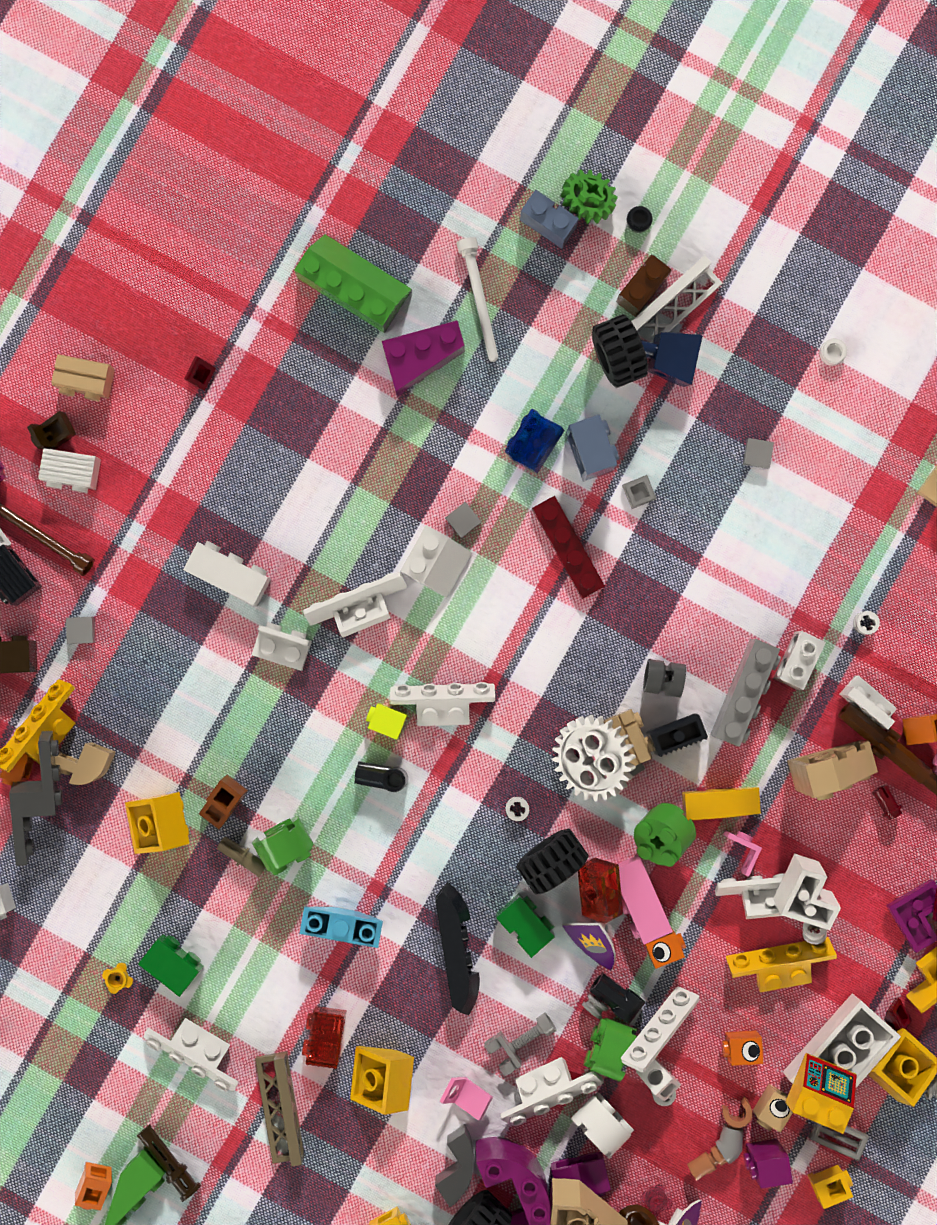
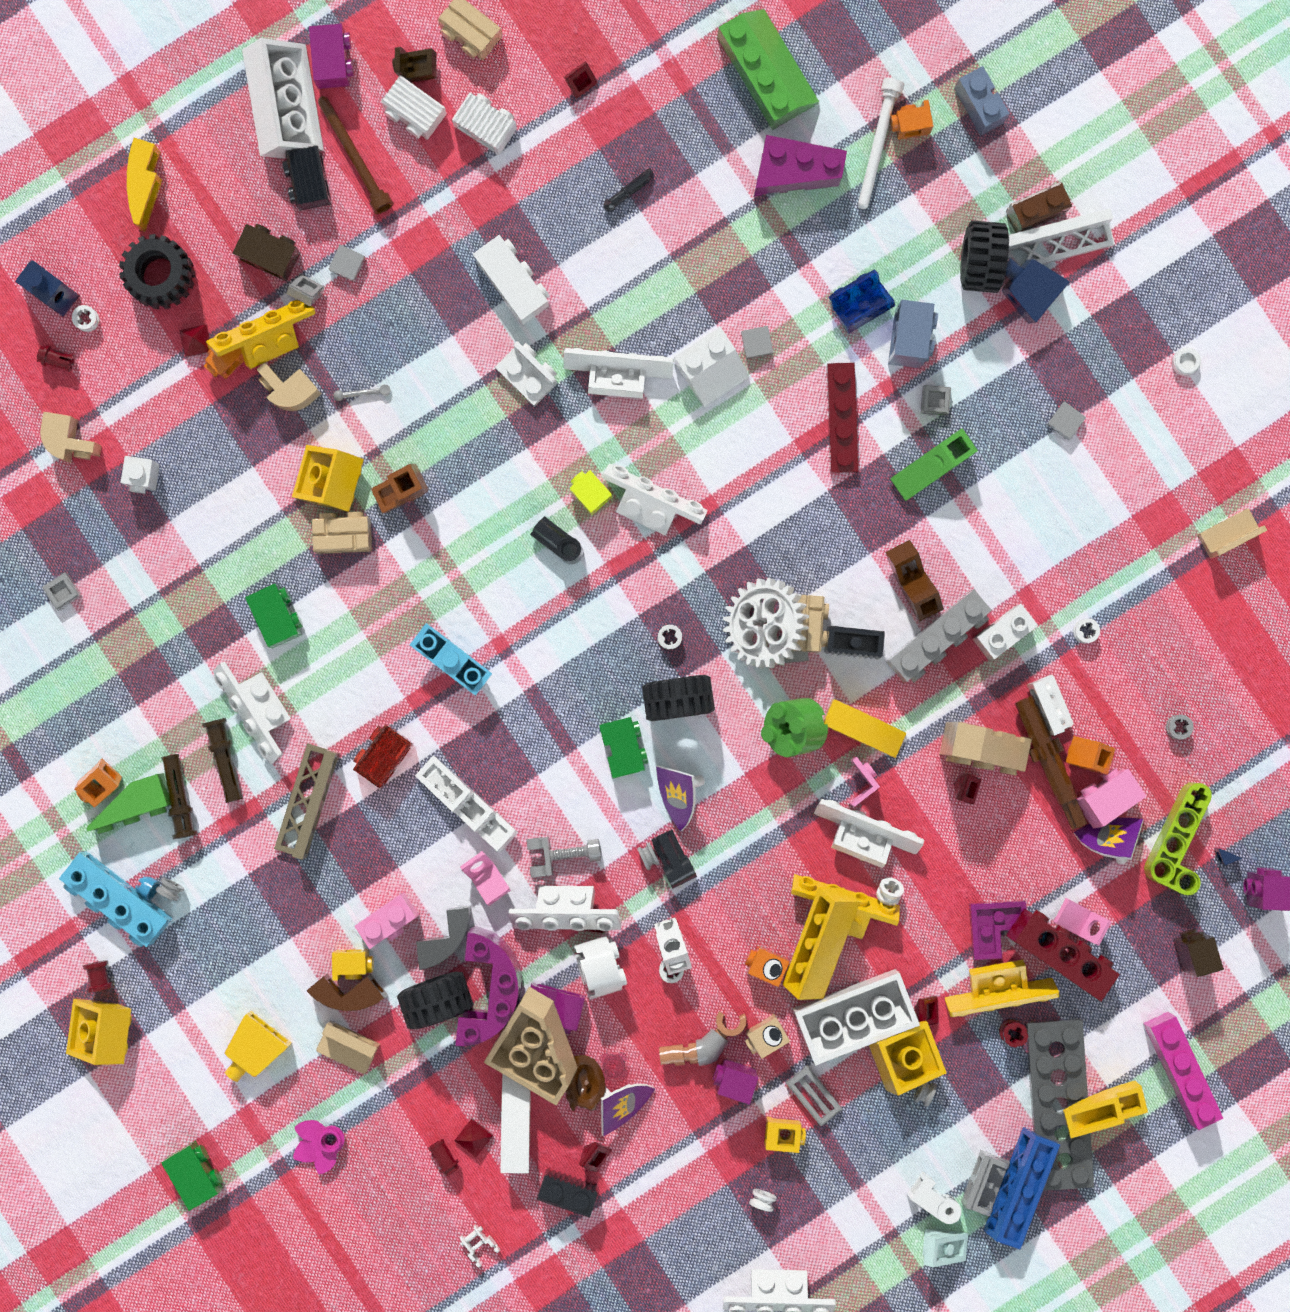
camera: 25 degrees right, 0 degrees up
(35, 798) = (229, 395): dark grey bracket -> none
(56, 672) = (305, 290): none -> light grey tile
(110, 981) = (210, 607): yellow plate -> none
(137, 451) = (485, 123): none -> white brick
(167, 722) = (384, 390): none -> light grey hinge
(182, 1101) = (220, 746): none -> dark brown pin
(194, 865) = (341, 534): none -> tan brick
(241, 856) = (391, 550): dark tan axle -> none
(283, 845) = (435, 556): bright green brick -> none
(287, 449) = (625, 192): none -> black piece
(382, 1079) = (416, 821): yellow slope -> none
(400, 1177) = (387, 921): none -> bright pink brick
(417, 1041) = (466, 804): none -> white slope
(461, 982) = (535, 774): black brick -> none
(499, 265) = (912, 121): none -> orange brick
(588, 196) = (1030, 98): bright green gear -> none
(600, 890) = (709, 748): clear red brick -> none
(610, 1043) = (643, 900): bright green brick -> none
(639, 219) = (1067, 144): black plate -> none
(641, 902) = (740, 778): bright pink brick -> none
(655, 677) = (861, 579): dark grey wheel -> none
(660, 1029) = (698, 904): white bracket -> none
(666, 548) = (934, 464): none -> bright green slope
(666, 949) = (741, 835): orange brick -> none
(700, 655) = (913, 580): none -> reddish brown brick
(781, 1009) = (821, 943): none -> yellow brick
(802, 895) = (894, 844): white brick -> none
(823, 1093) = (821, 1036): slope -> none
(834, 809) = (967, 788): none -> dark red slope
(887, 802) = (1019, 808): dark red pin -> none

